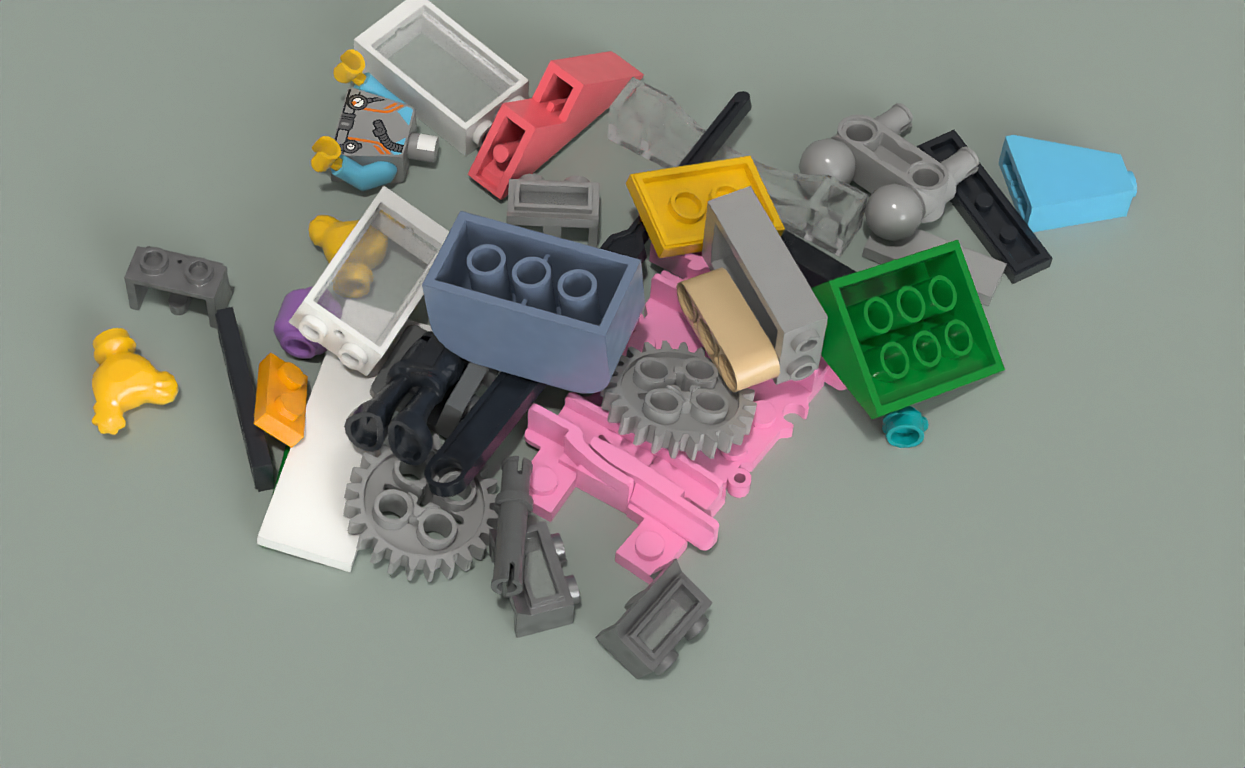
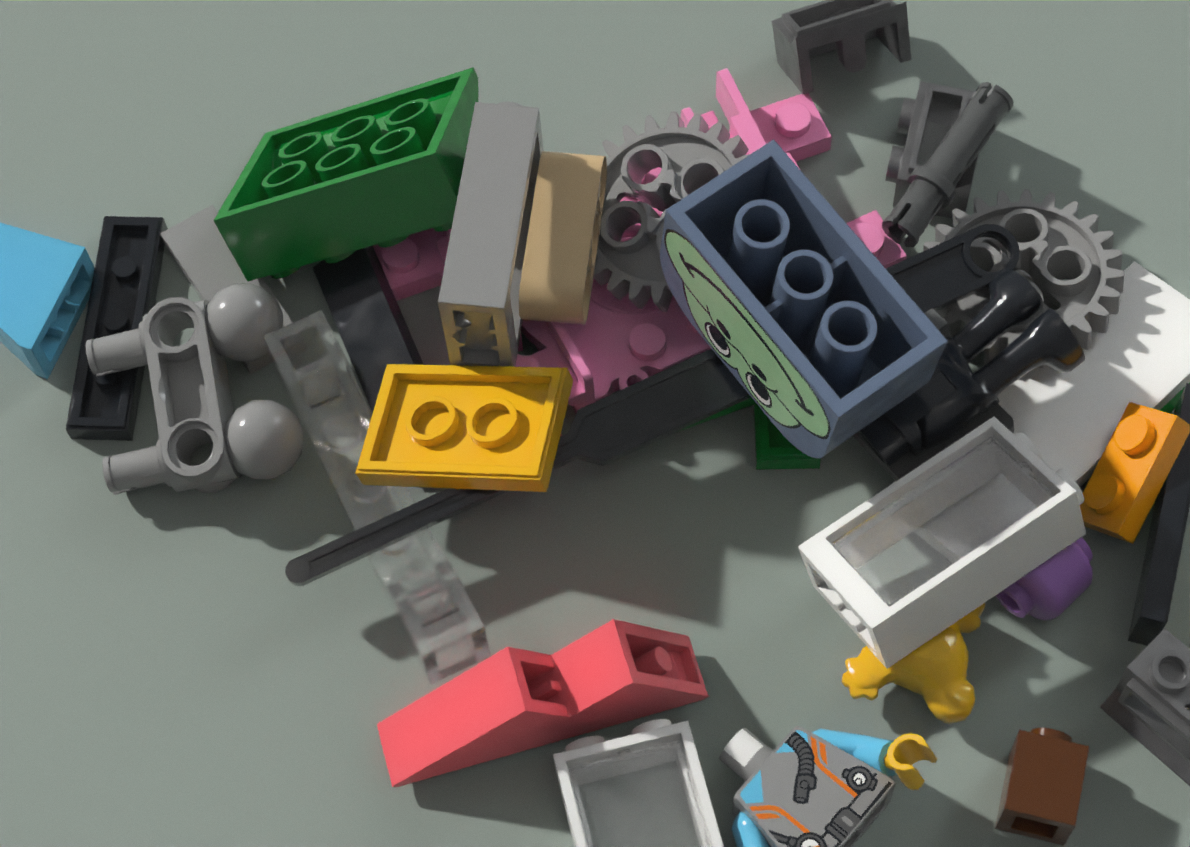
camera: 140 degrees left, 5 degrees up
(246, 209) = (1042, 785): none -> reddish brown brick
(554, 204) = (637, 566): light grey window -> none

